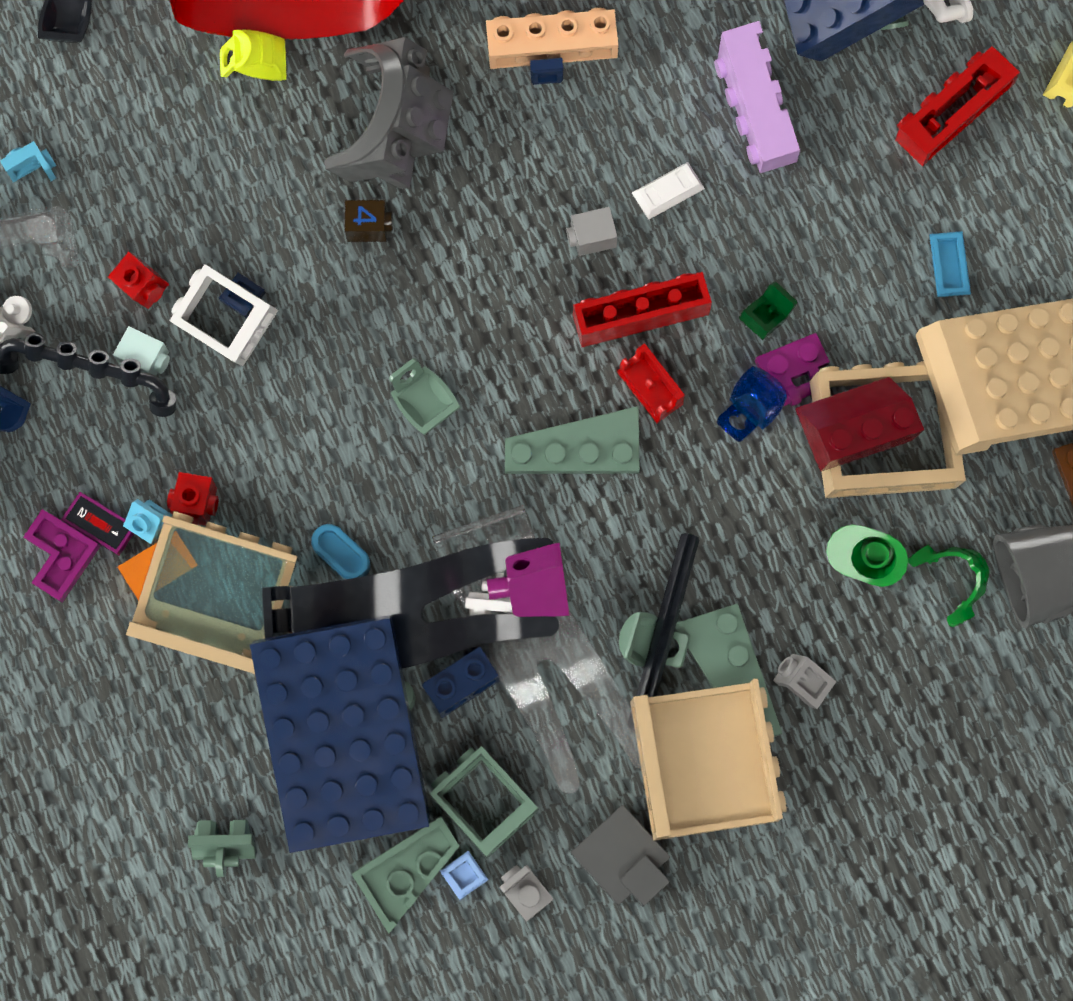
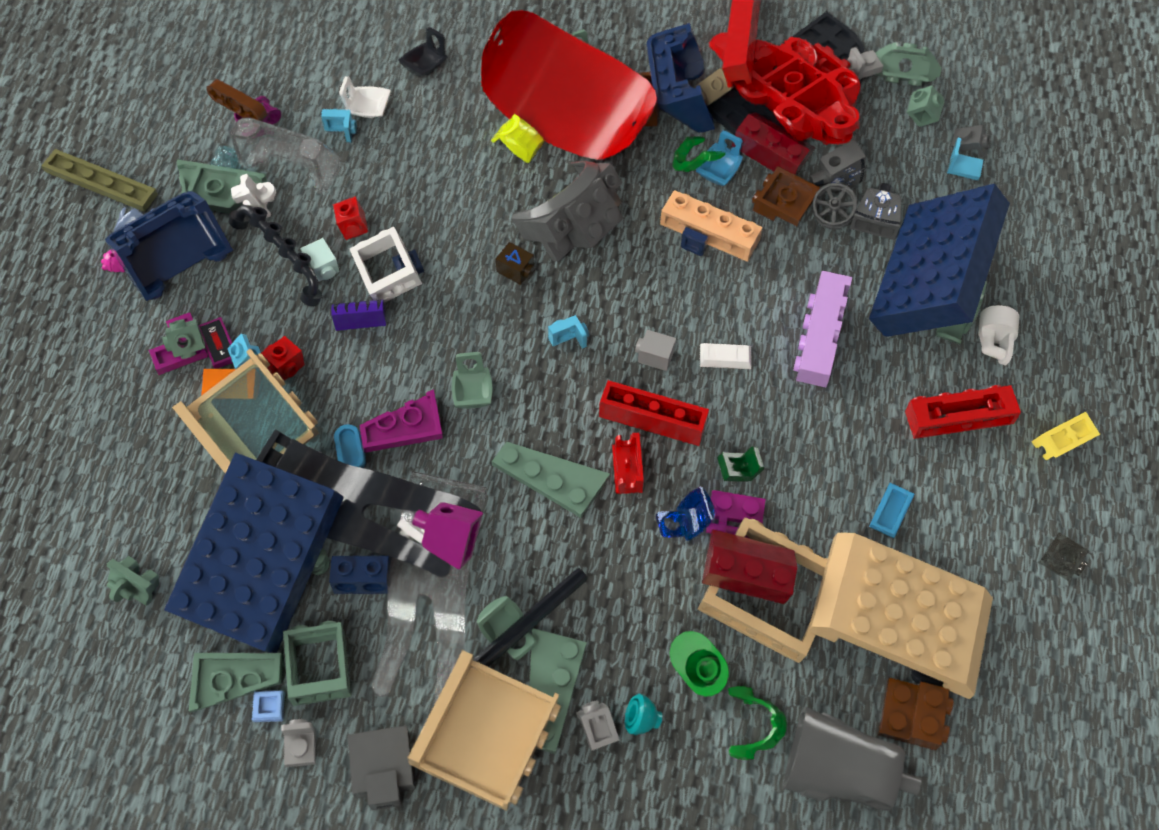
camera: 30 degrees right, 15 degrees down
(38, 115) = (364, 101): none -> white piece
(70, 546) = (188, 330): none -> sand green brick
(235, 390) = (358, 315): none -> dark purple brick
(383, 488) = (408, 425): none -> magenta wing
(475, 270) = (567, 329): none -> medium azure bracket
(841, 643) = (641, 715): none -> teal brick

